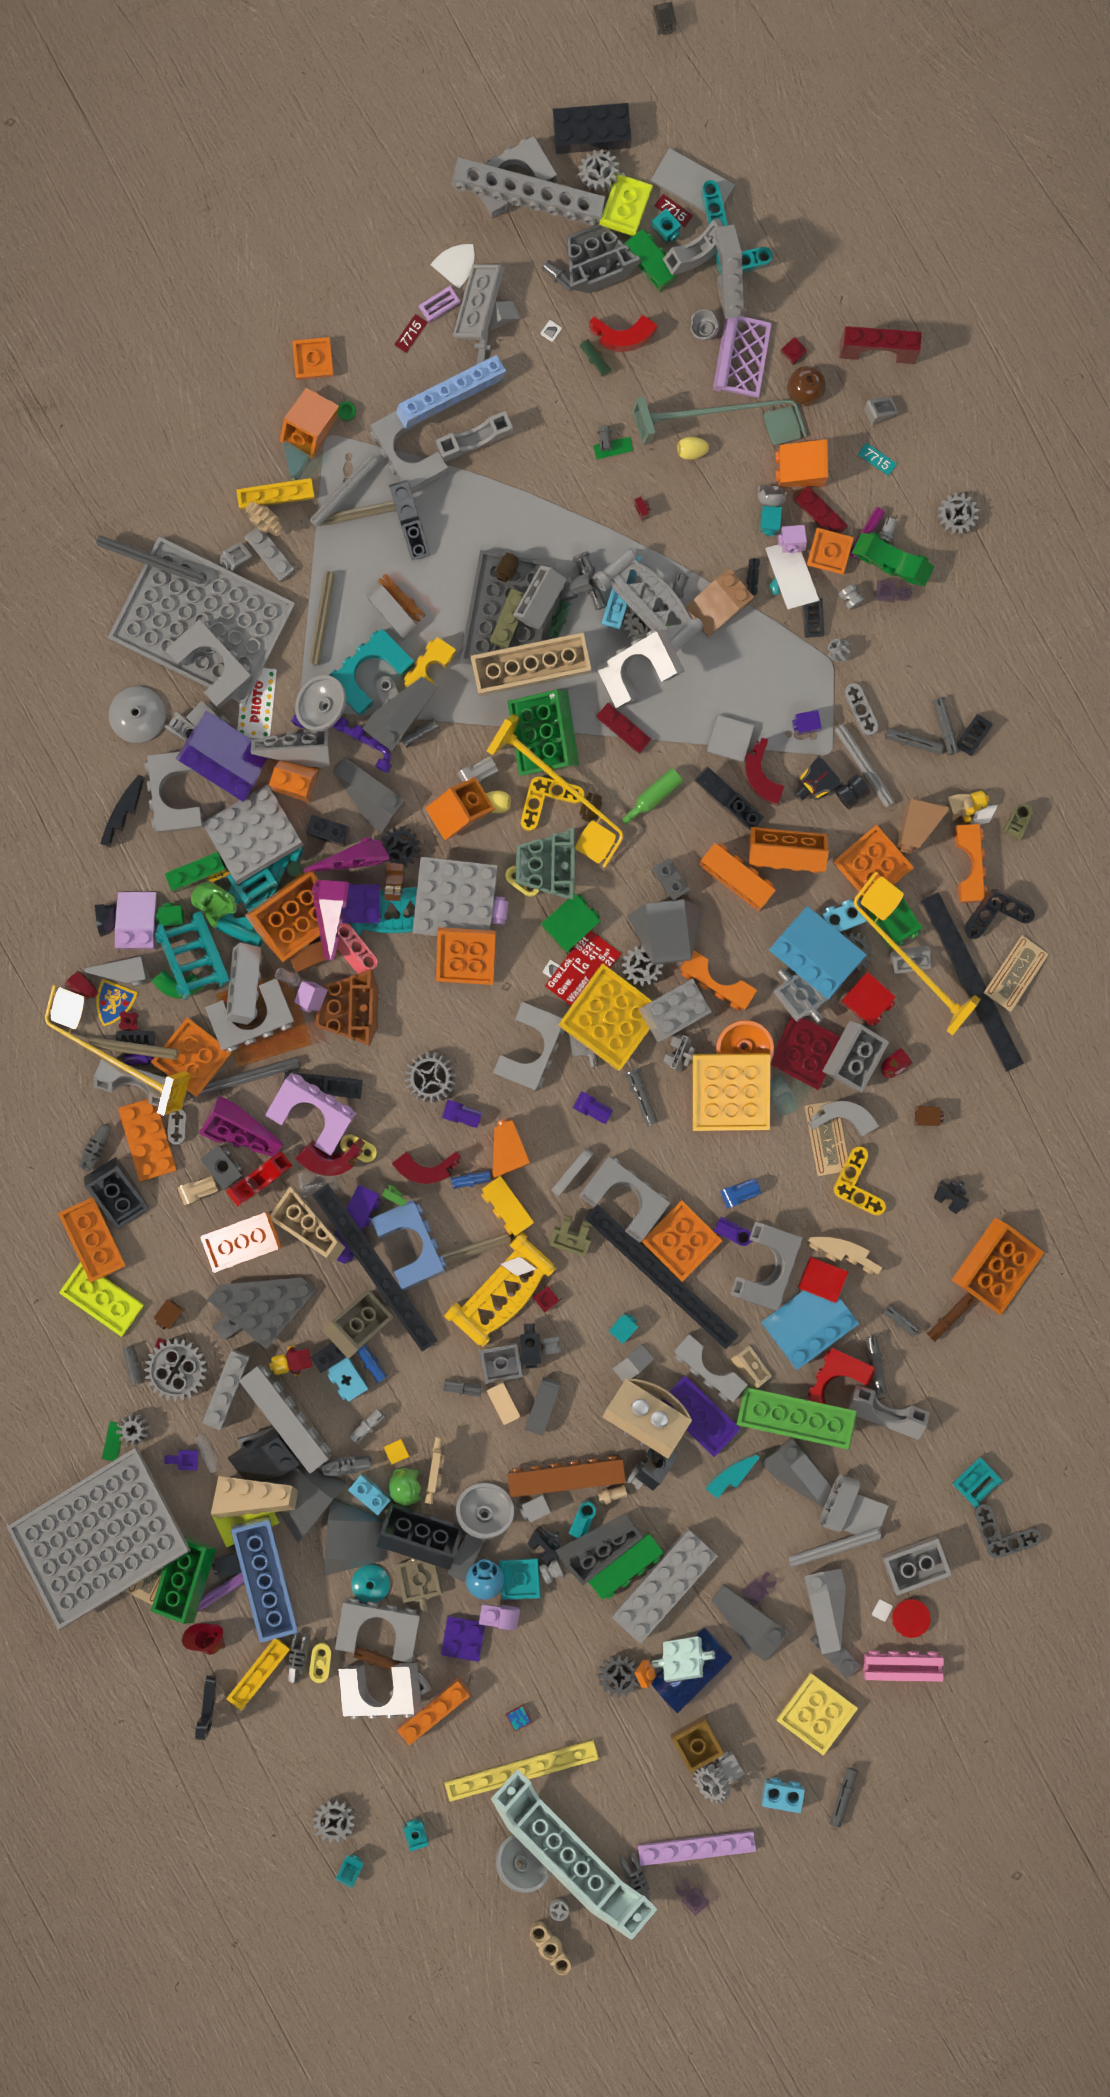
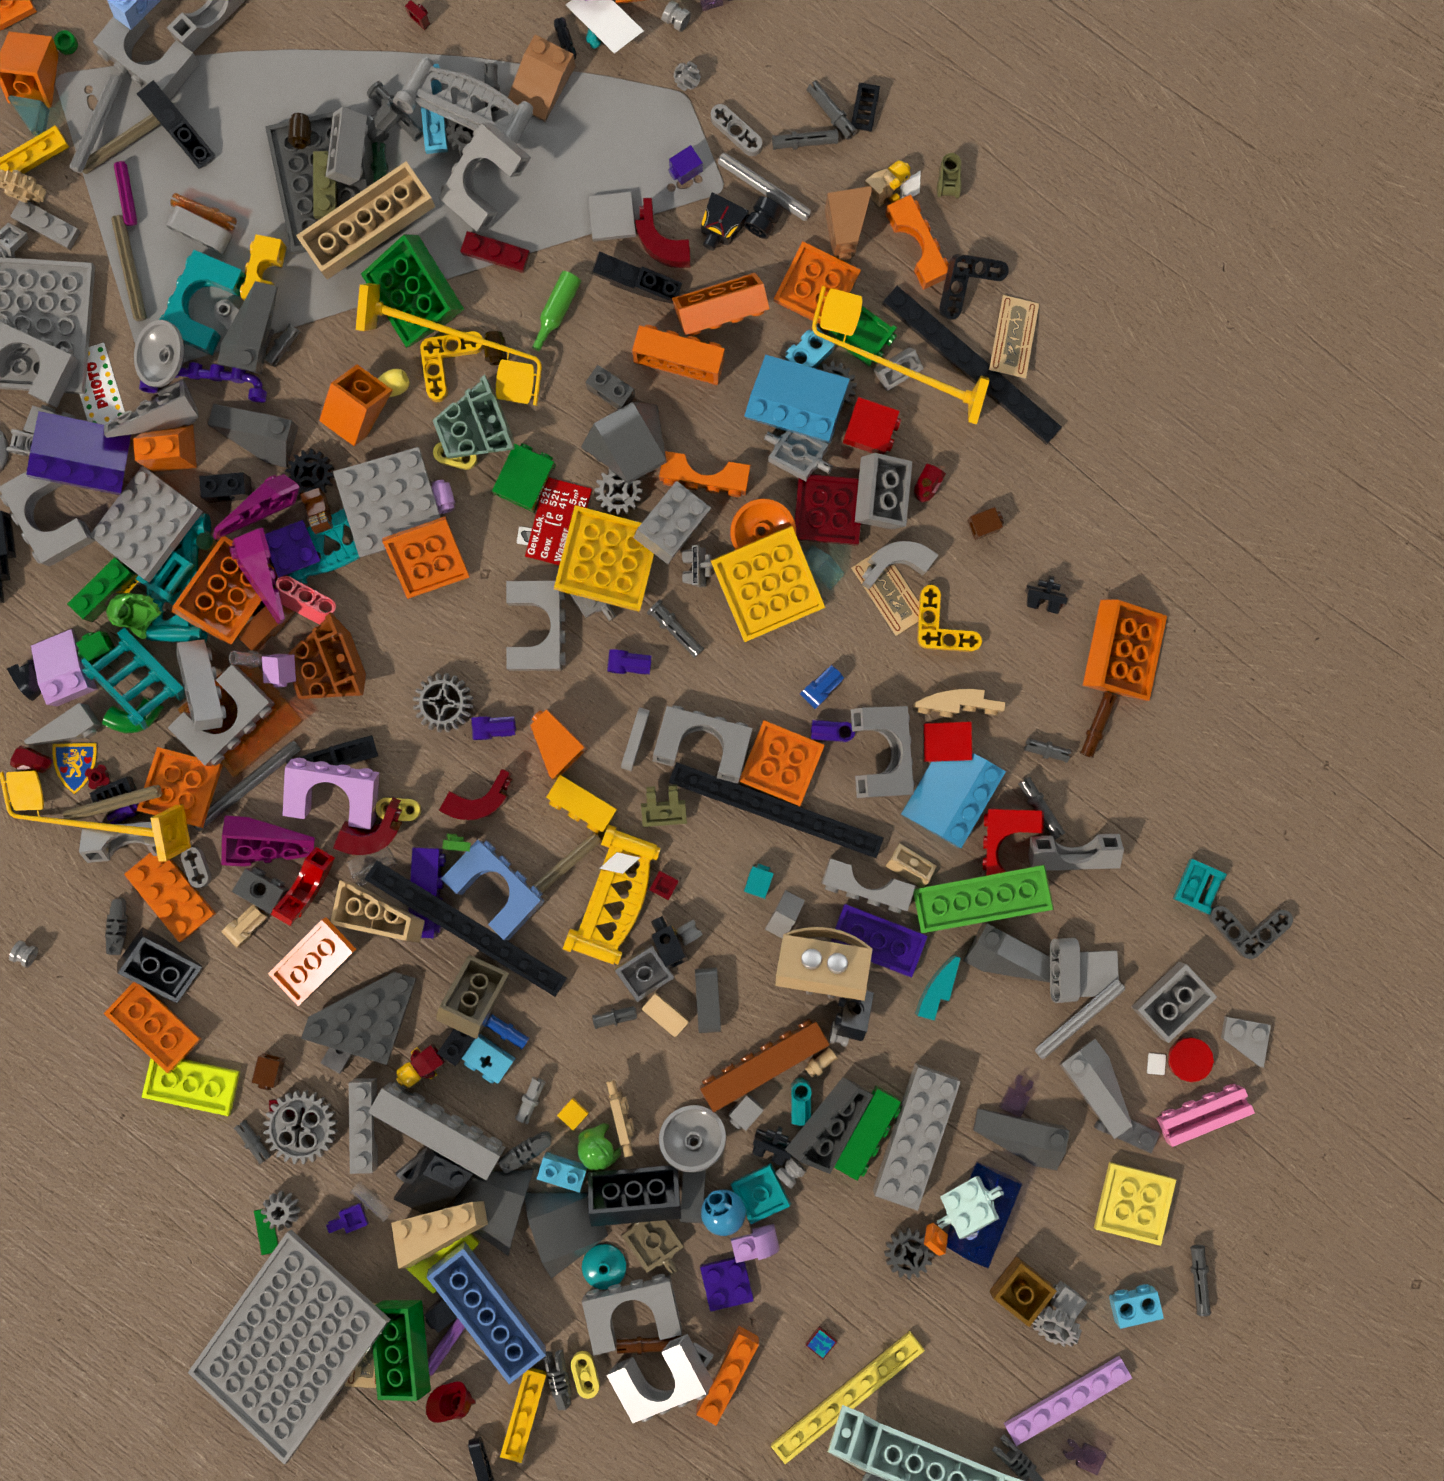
camera: 25 degrees left, 0 degrees up
(12, 1138) = (23, 954): none -> light grey wheel
(344, 556) = (125, 193): none -> magenta axle
(470, 1179) = (531, 792): blue pin -> none
(480, 770) = (363, 356): light grey piece -> none
(819, 617) = (644, 36): black slope -> none
(964, 1620) = (1247, 1037): none -> light grey wing

